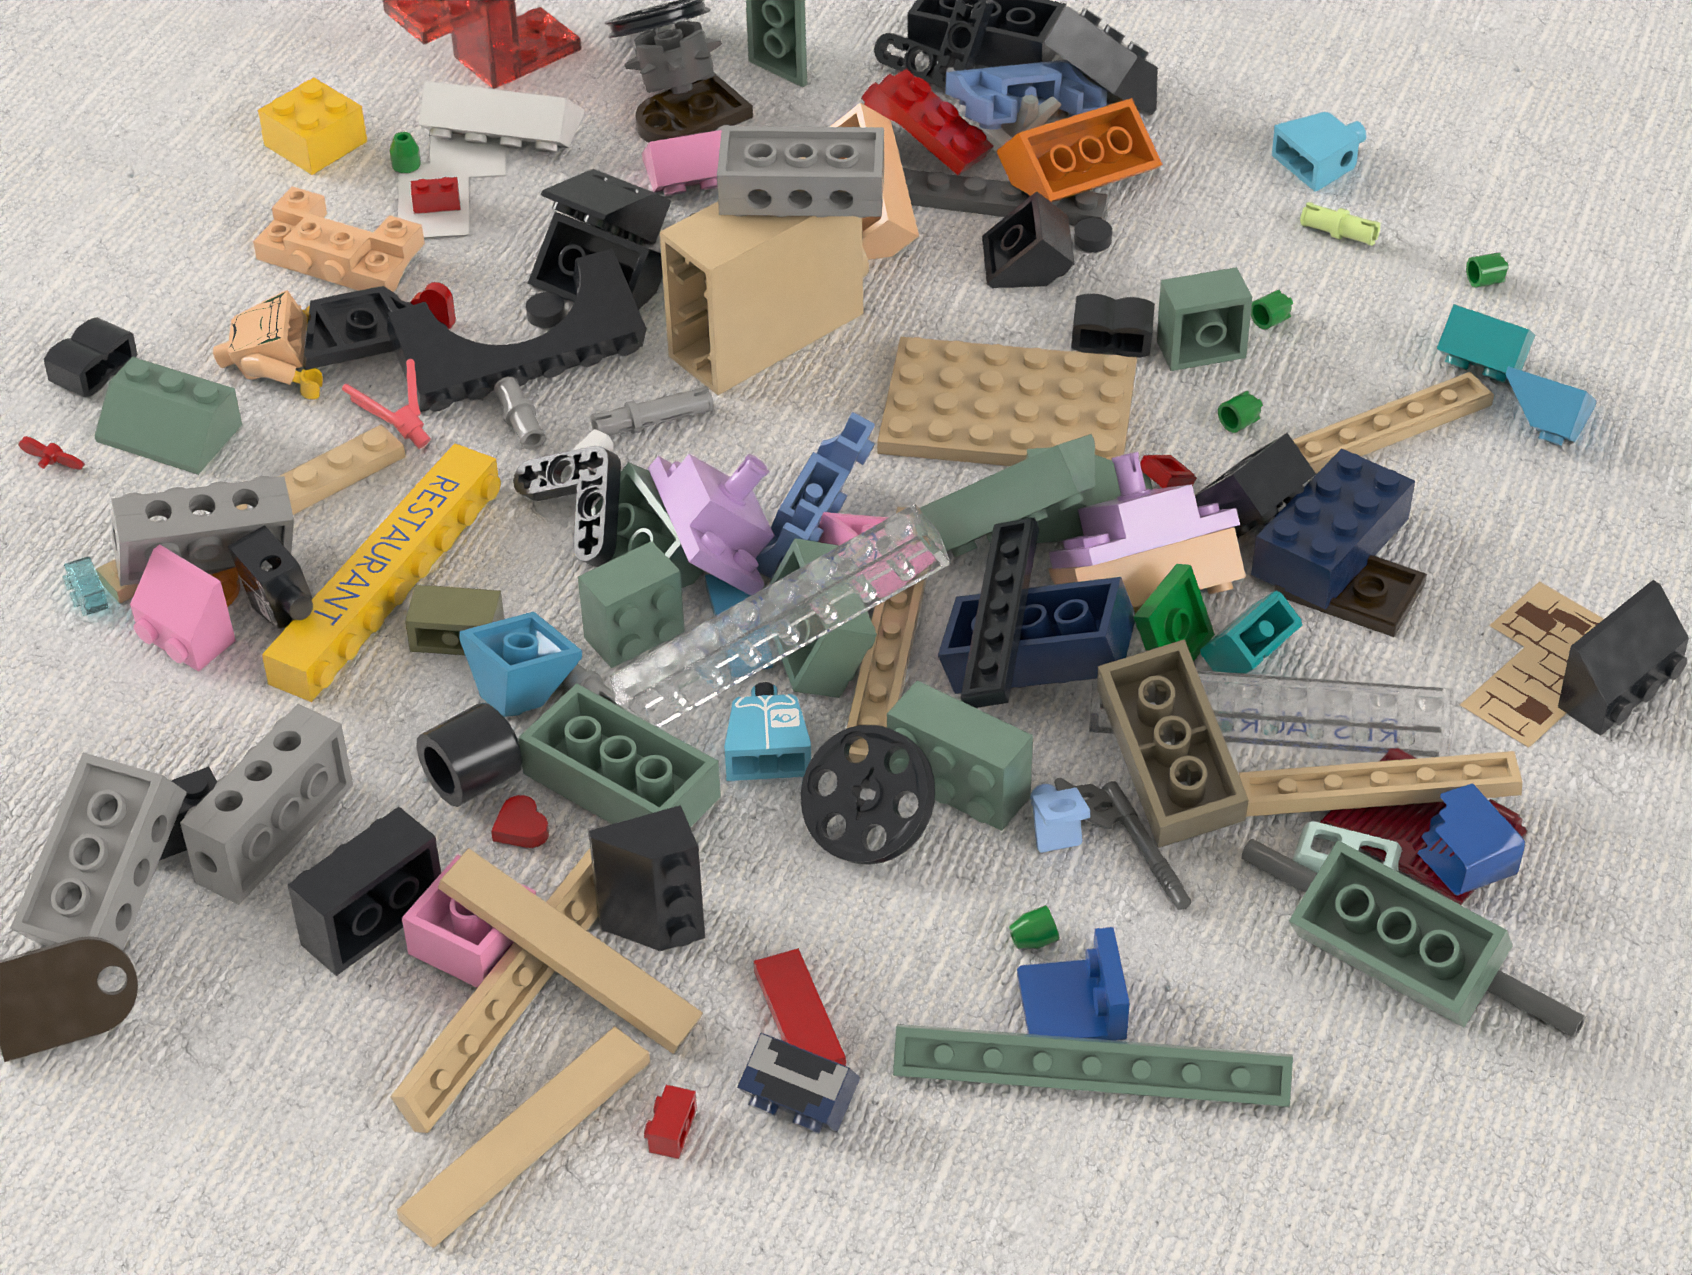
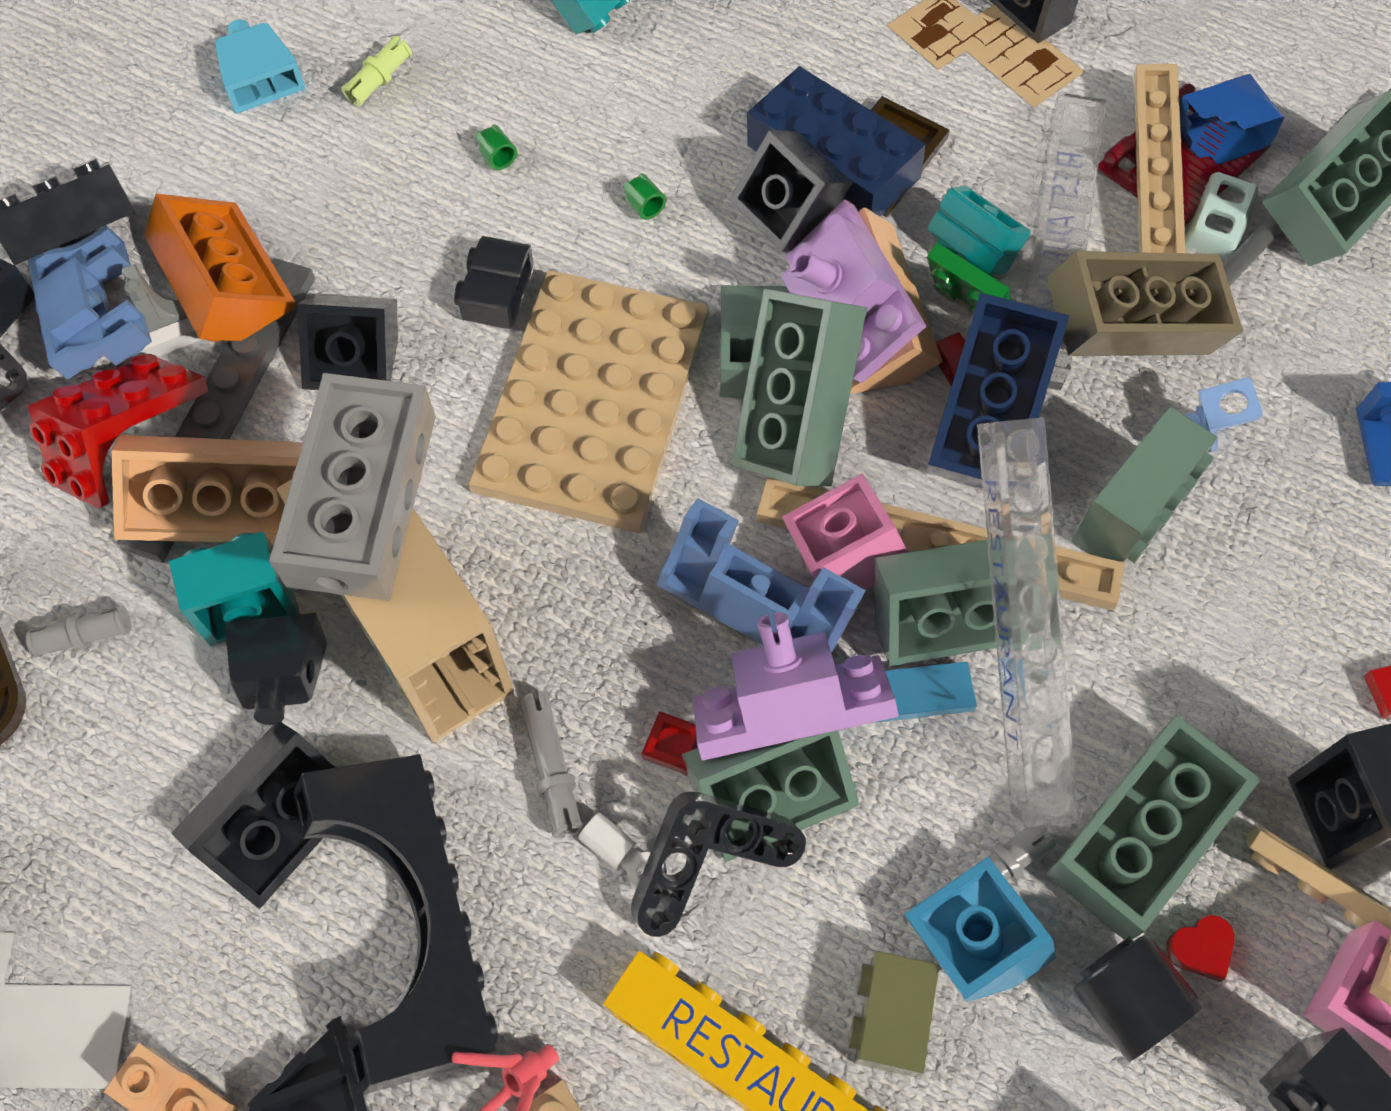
camera: 85 degrees left, 20 degrees up
(435, 195) = (47, 1029): red piece -> none
(439, 301) = (292, 1034): red tile -> none
(519, 413) = (524, 925): light grey pin -> none
(545, 309) = (322, 886): black tile -> none
(610, 205) = (176, 784): black slope -> none
(631, 604) = (912, 795): sand green brick -> none
(683, 162) = (83, 690): bright pink slope -> none
(766, 736) = (1101, 675): medium azure torso -> none
(868, 774) = (1186, 583): black wedge -> none
(1000, 614) = (960, 408): black tile -> none
(1034, 929) = (1327, 462): green hose -> none
(1093, 235) = (332, 279): black tile -> none
(1122, 811) = (1177, 373): dark grey piece -> none
(1166, 471) = (725, 269): red tile -> none
(1203, 318) = (522, 191): sand green brick -> none
(1396, 420) = (677, 99): tan tile -> none

